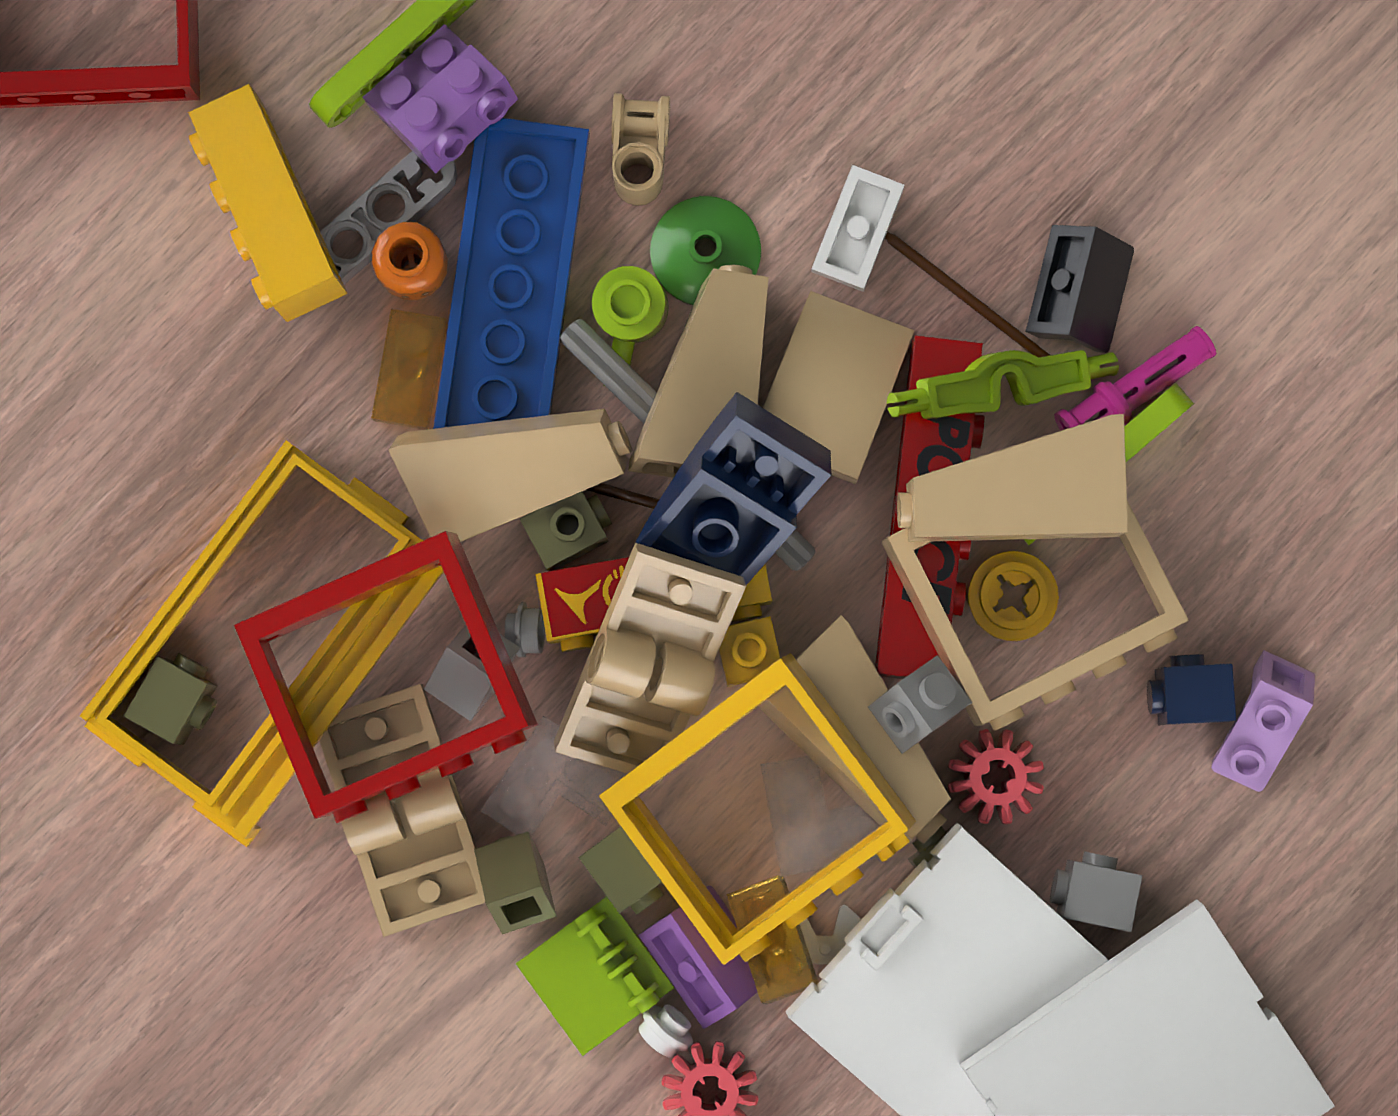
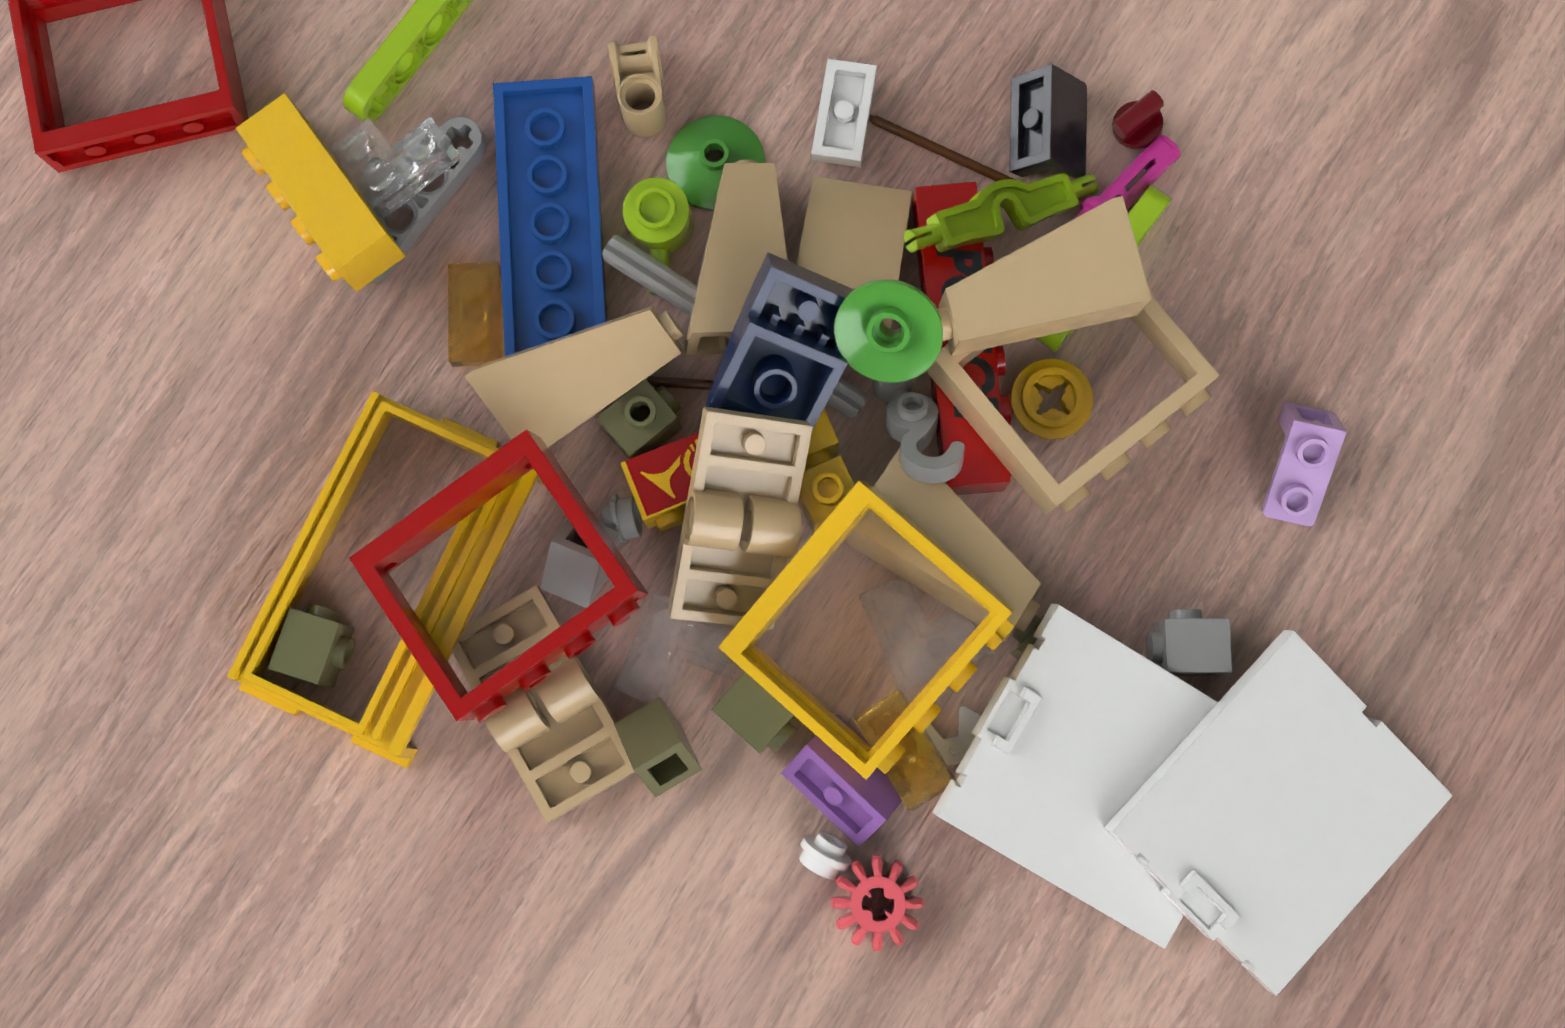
camera: 10 degrees left, 5 degrees down
(352, 196) = (397, 172): none -> clear plate
(404, 243) = (455, 216): orange head -> none
(441, 98) = (458, 75): medium lavender plate -> none
(595, 976) = (748, 819): lime hinge -> none
(835, 520) = (885, 352): none -> bright green dish
(856, 595) = (913, 422): none -> light grey piece
(919, 704) = (994, 501): light grey brick -> none
(1011, 788) = (1090, 572): coral gear -> none
(1179, 307) = (1139, 121): none -> dark red plate
(1192, 692) = (1232, 449): dark blue brick -> none

